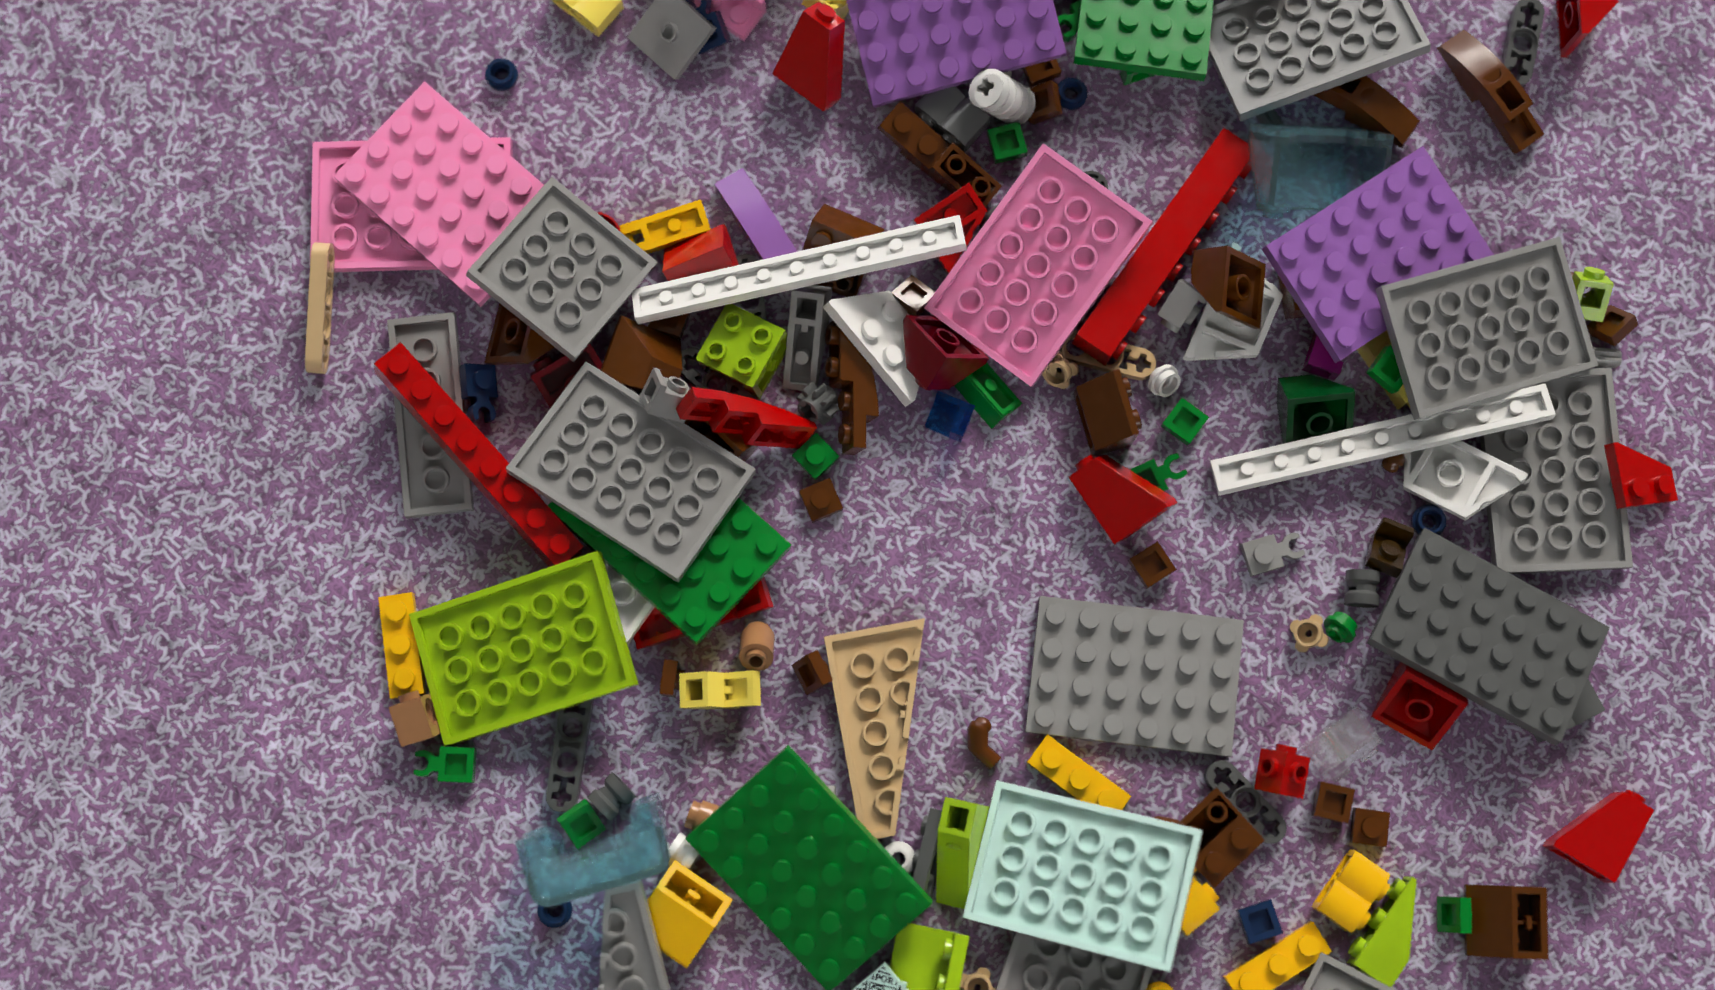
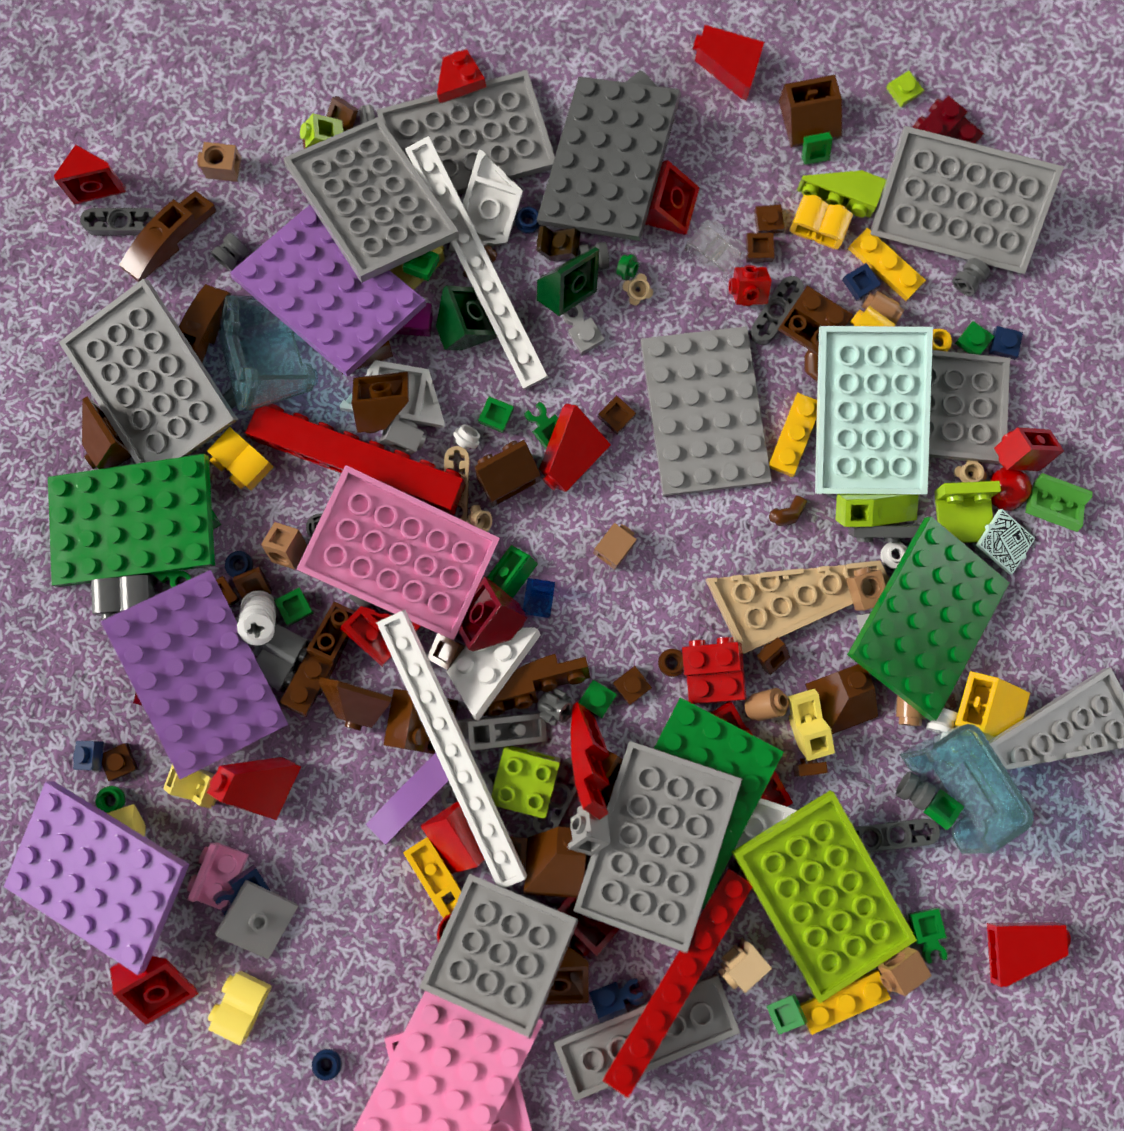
camera: 110 degrees left, 0 degrees up
(399, 871) = (1024, 949): none -> red slope
(408, 574) = (786, 1014): none -> plate
(473, 535) = (743, 966): none -> tan window
(738, 741) = (846, 698): none -> reddish brown slope
(812, 597) = (714, 671): none -> red plate
(835, 542) = (662, 662): none -> reddish brown plate
(878, 181) = (354, 704): none -> reddish brown slope
(881, 800) = (855, 584): none -> medium nougat brick
(991, 521) = (615, 545): none -> medium nougat brick
(1080, 142) = (284, 545): none -> medium nougat brick
(1195, 117) = (240, 459): none -> yellow brick
(1216, 936) = (884, 305): none -> medium nougat brick
(1331, 546) = (569, 283): none -> dark green slope
(1461, 163) = (229, 252): none -> dark grey wheel
(1573, 182) = (227, 169): none -> medium nougat brick

